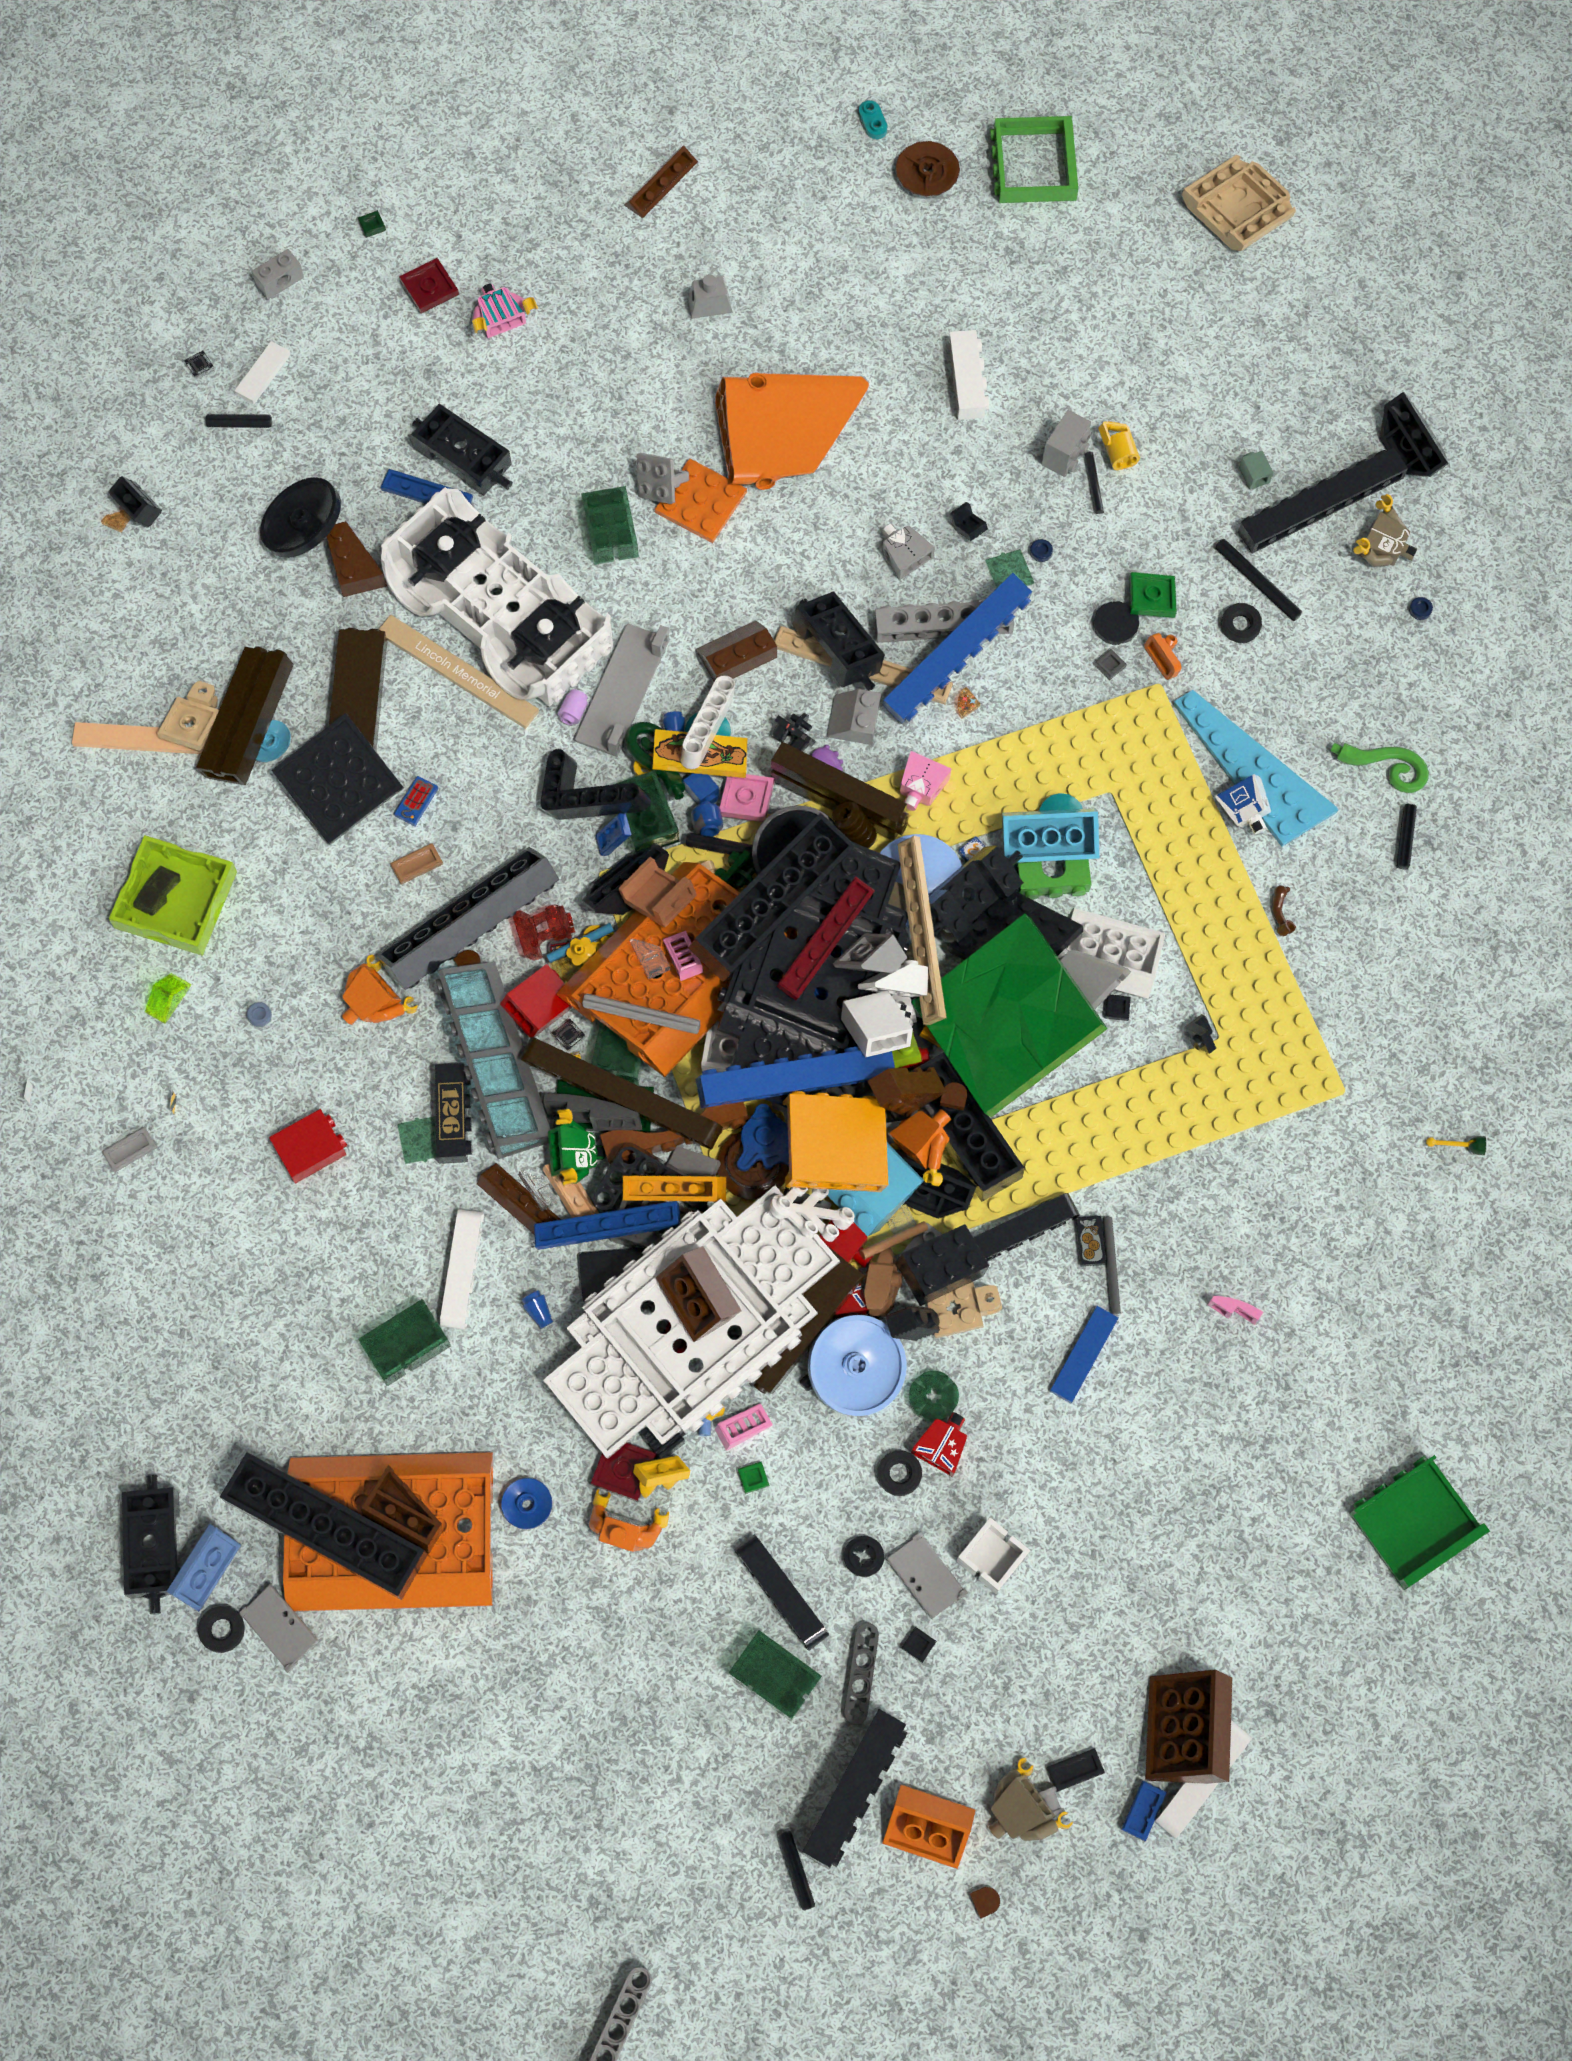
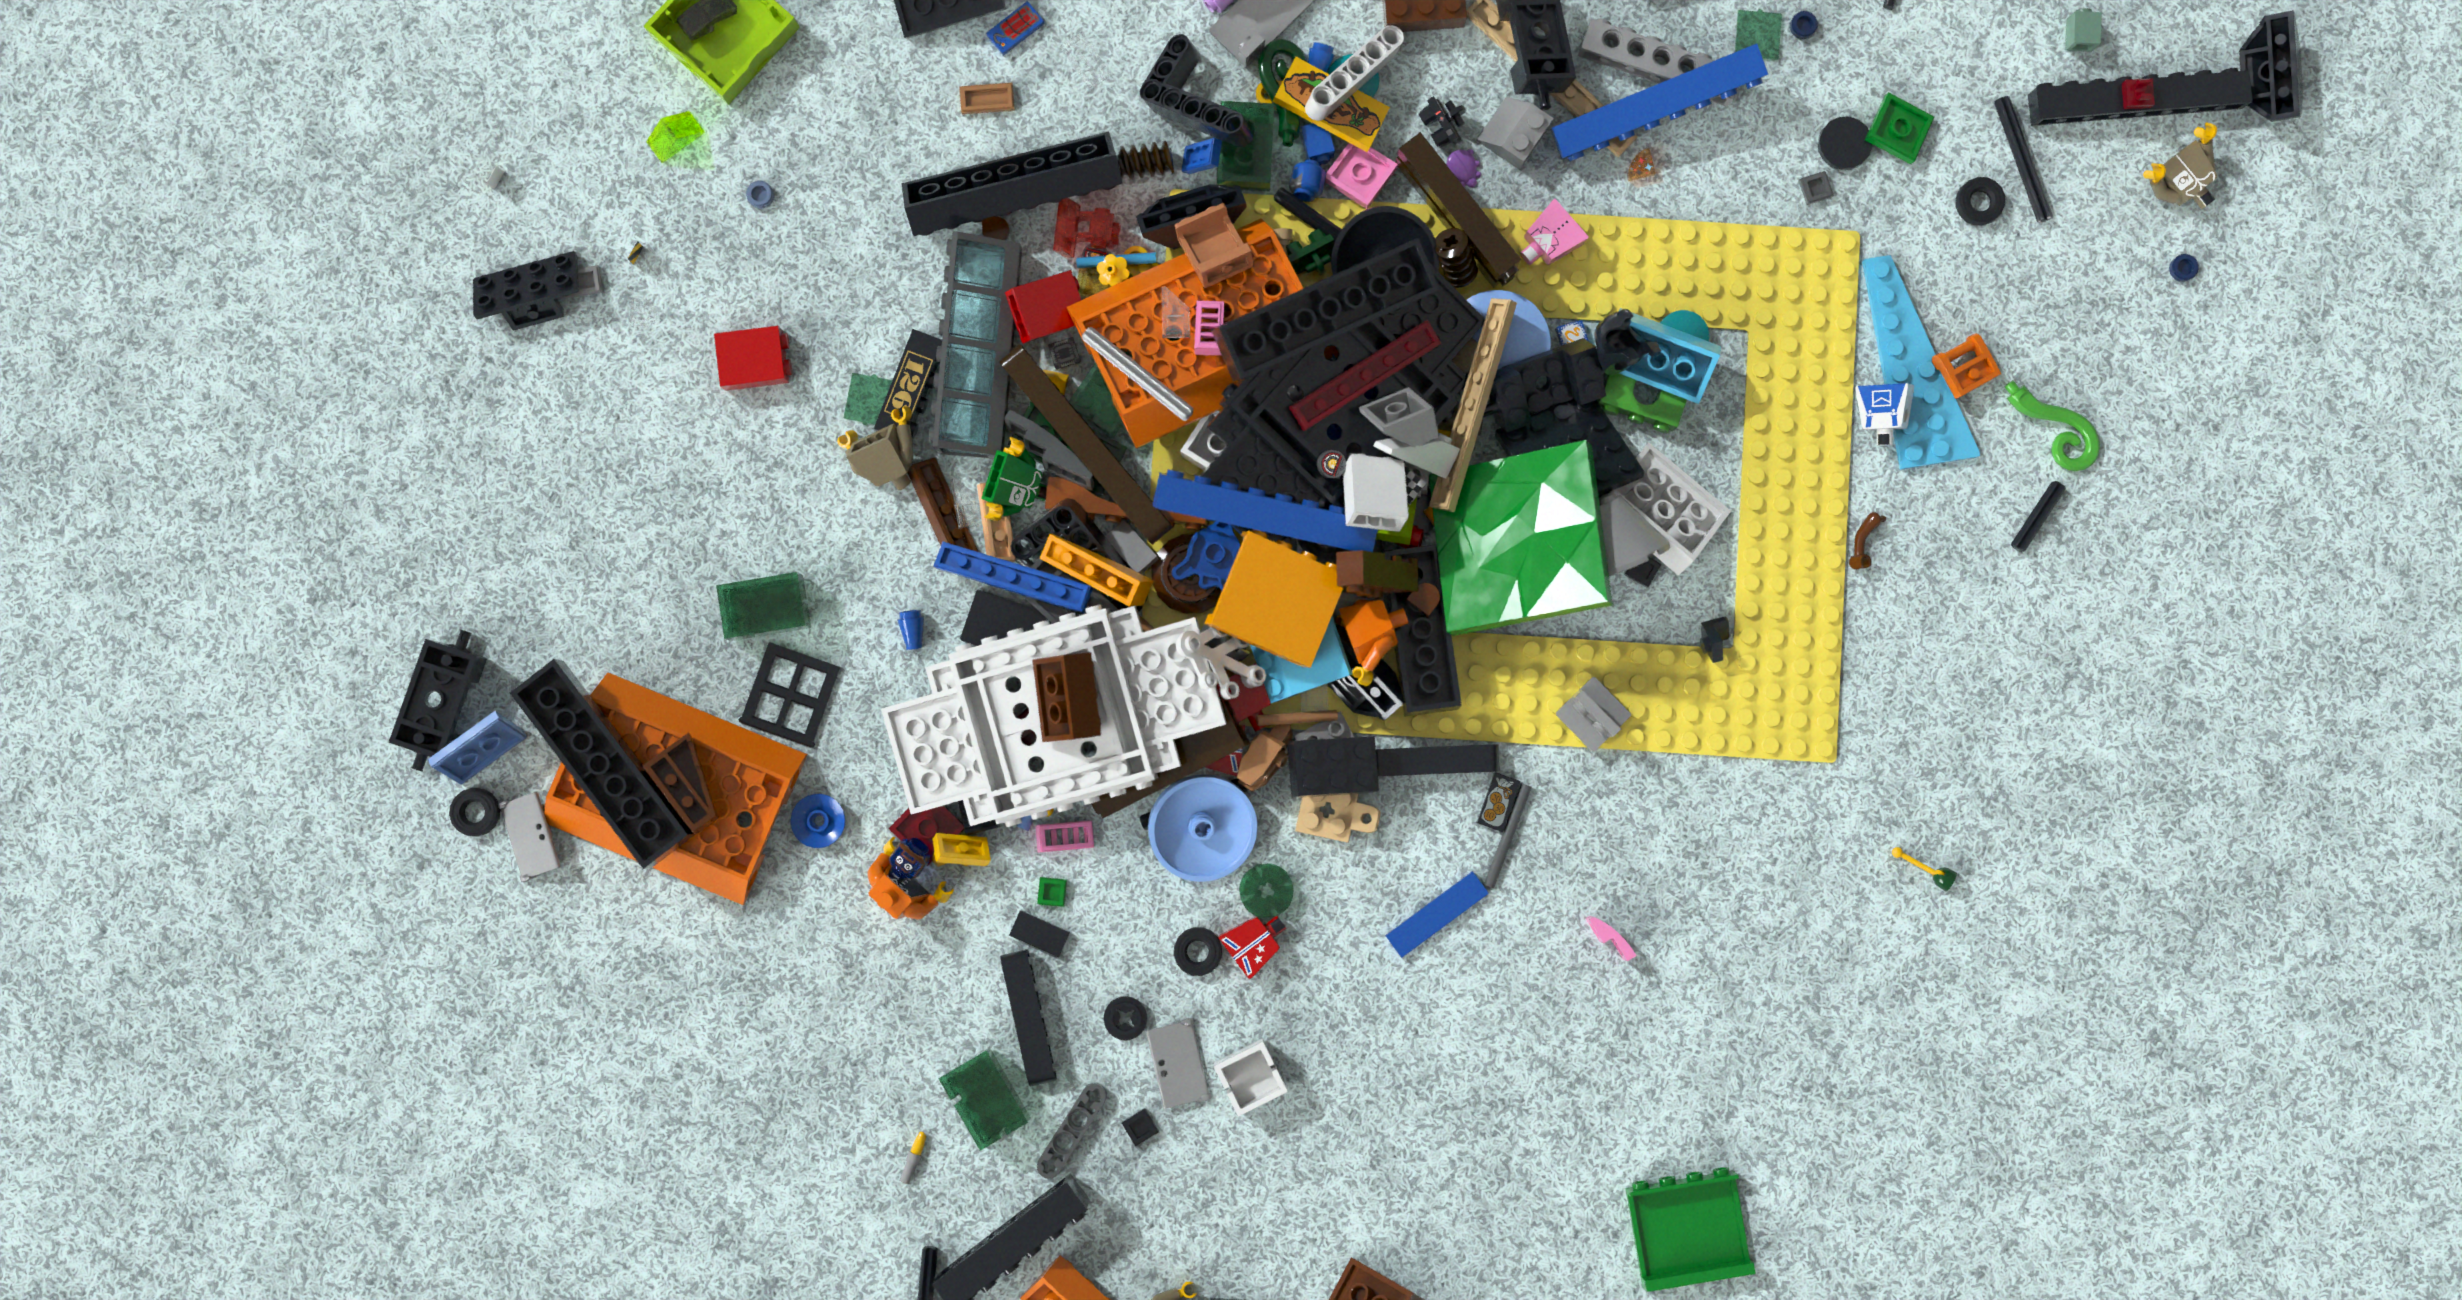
camera: 25 degrees right, 15 degrees up
(94, 1171) = (528, 291): none -> black bracket
(371, 996) = (879, 226): orange torso -> none
(453, 1175) = (883, 454): none -> dark tan torso
(456, 1410) = (789, 694): none -> black window
(460, 1269) = (852, 553): white beam -> none
(571, 855) = (1145, 160): none -> dark brown piece
(620, 1497) = (909, 858): none -> clear blue head
(735, 1761) = (913, 1158): none -> light grey piece
(758, 1517) = (1039, 933): none -> black tile
(830, 1017) = (1331, 464): none -> tile
(913, 1323) = (1276, 812): black brick -> none
(1014, 836) = (1619, 344): none -> black piece
(1133, 1135) = (1593, 714): none -> light grey bracket
(1162, 655) = (1876, 202): orange piece -> none
(1298, 752) = (1970, 374): none -> orange plate
(1319, 496) = (2138, 93): none -> dark red tile

